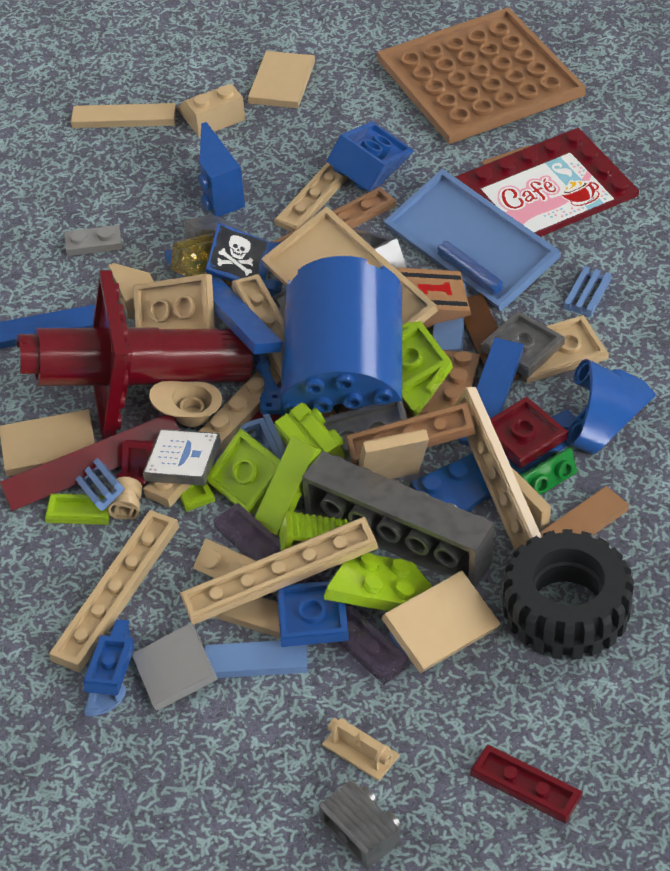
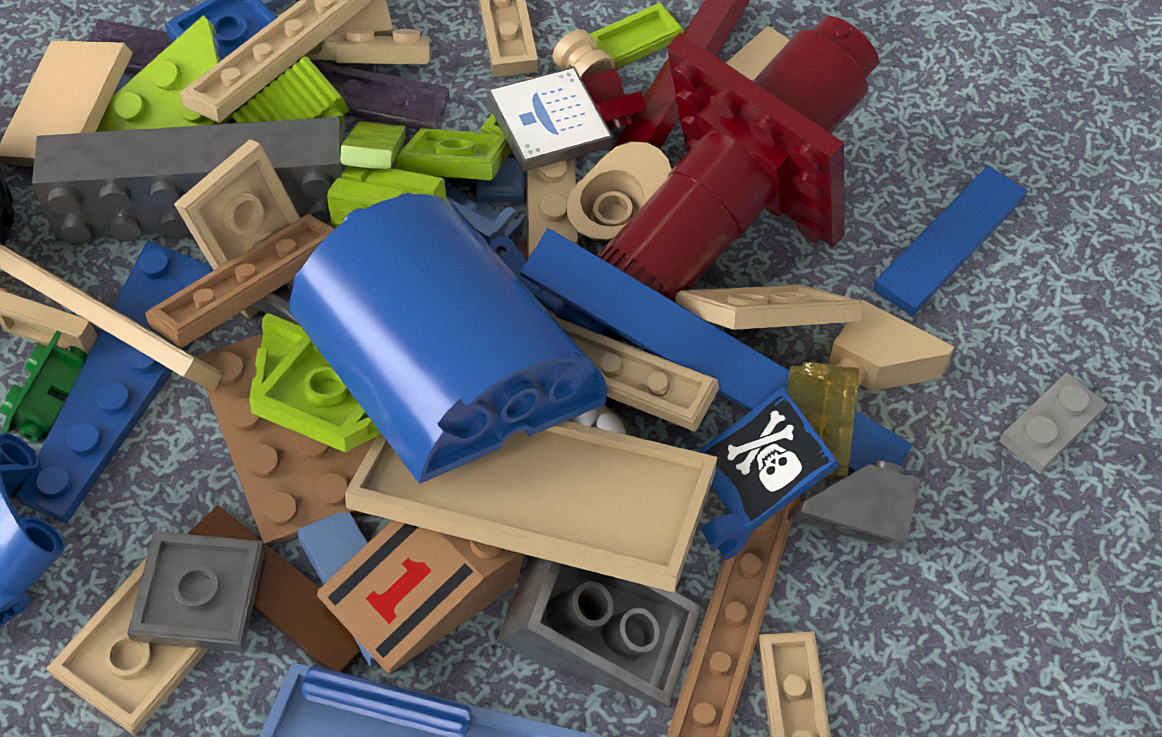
camera: 140 degrees right, 10 degrees up
(92, 476) = (622, 44): medium blue tile -> none
(219, 175) = (991, 636): blue slope -> none
(498, 376) = (191, 467): blue tile -> none
(527, 432) = (100, 415): dark red tile -> none

